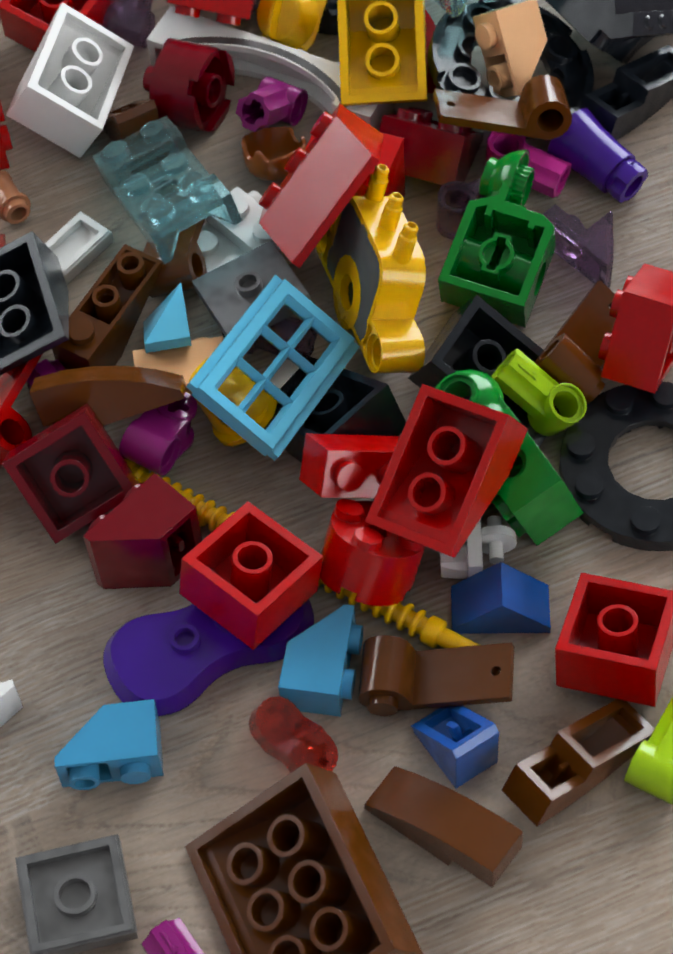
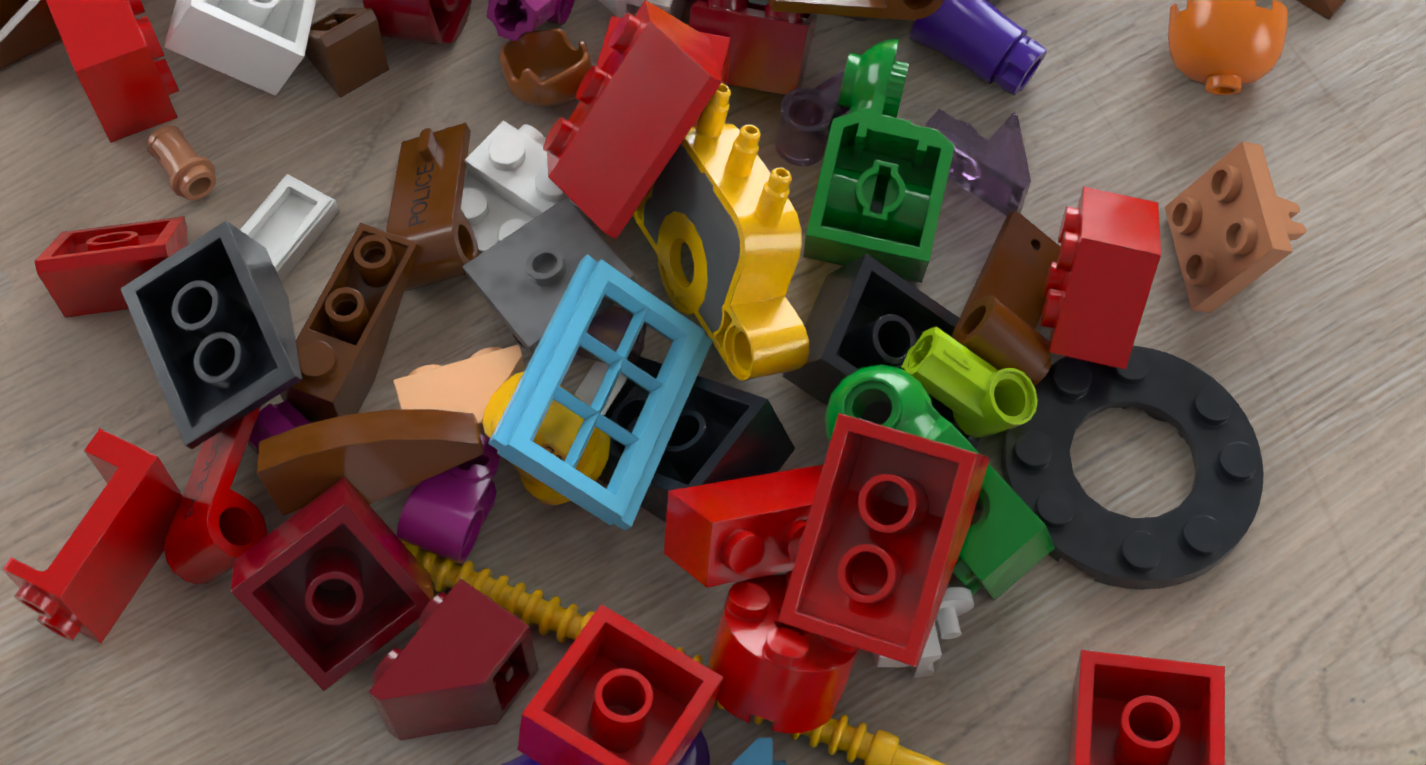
camera: 15 degrees left, 5 degrees up
(151, 166) = (379, 103): clear light blue piece -> none
(168, 324) = (438, 336): medium azure slope -> none
(500, 602) = (963, 698): blue slope -> none
(550, 170) = (866, 32): dark pink piece -> none

